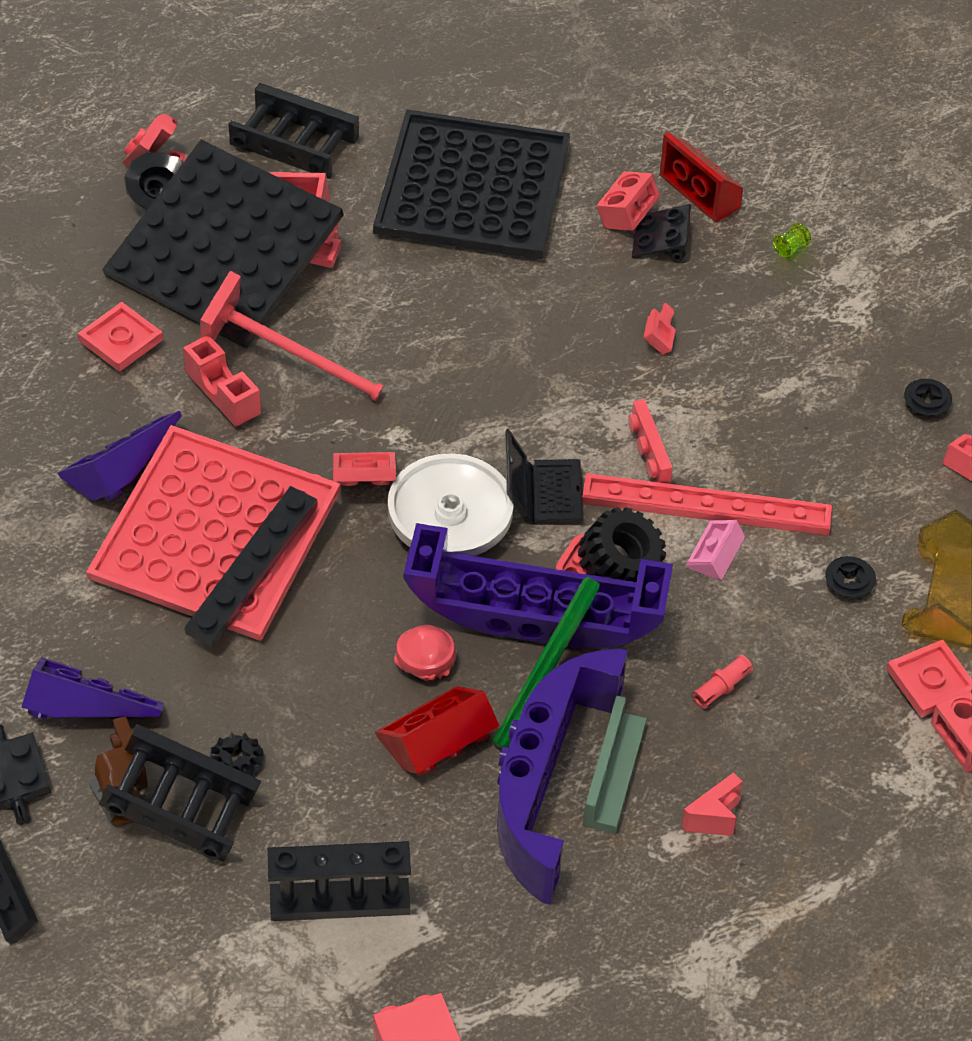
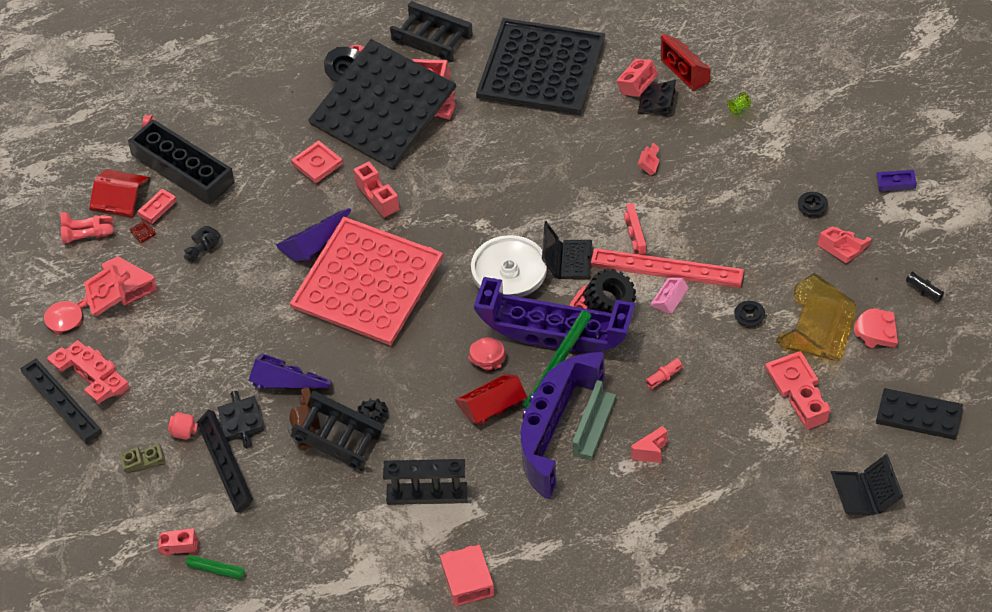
camera: 10 degrees right, 0 degrees up
(150, 139) = (341, 37): coral slope -> none
(223, 310) = (378, 146): coral tile -> none
(251, 567) = (387, 301): black plate -> none
(372, 466) = (458, 243): coral plate -> none

